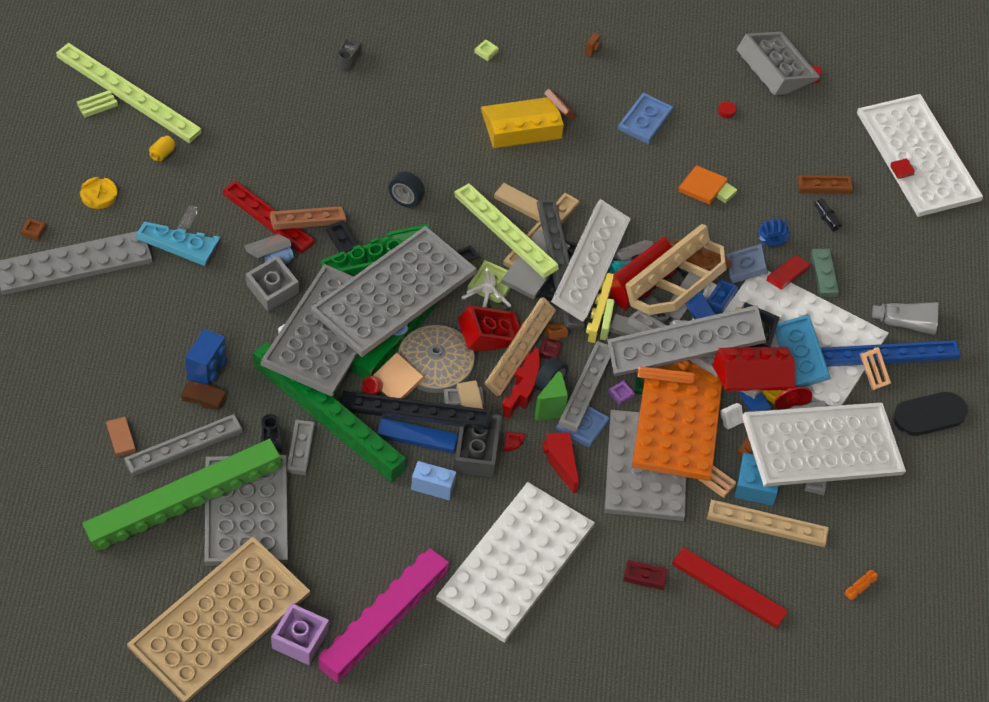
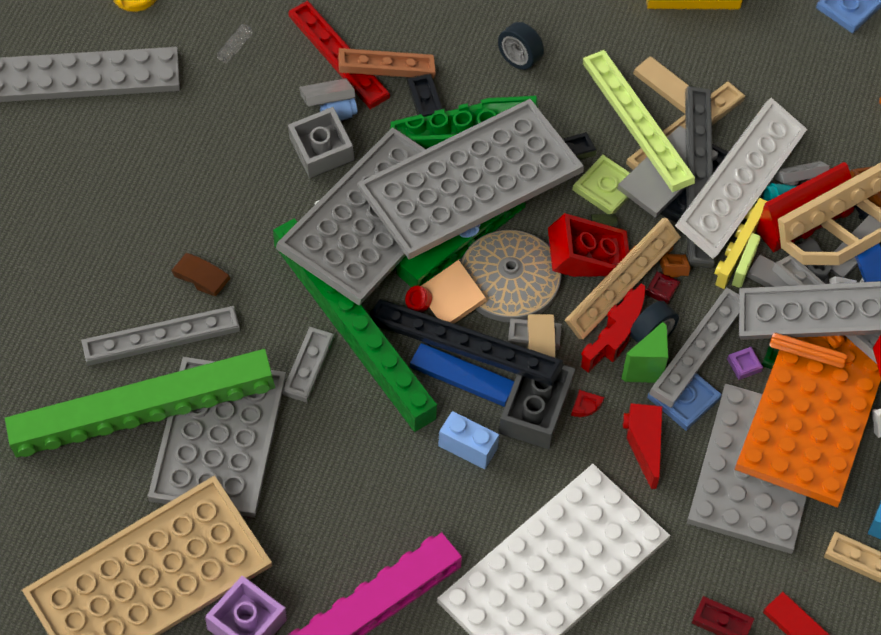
camera: 15 degrees right, 5 degrees up
(33, 229) = (43, 25): dark orange tile -> none
(120, 436) = (84, 311): nougat tile -> none
(186, 245) = (228, 76): medium azure wing -> none
(206, 358) = (213, 226): blue brick -> none
(271, 433) = (274, 342): black piece -> none
(487, 287) = (597, 192): white plant -> none
(722, 479) = (852, 503): light nougat tile -> none

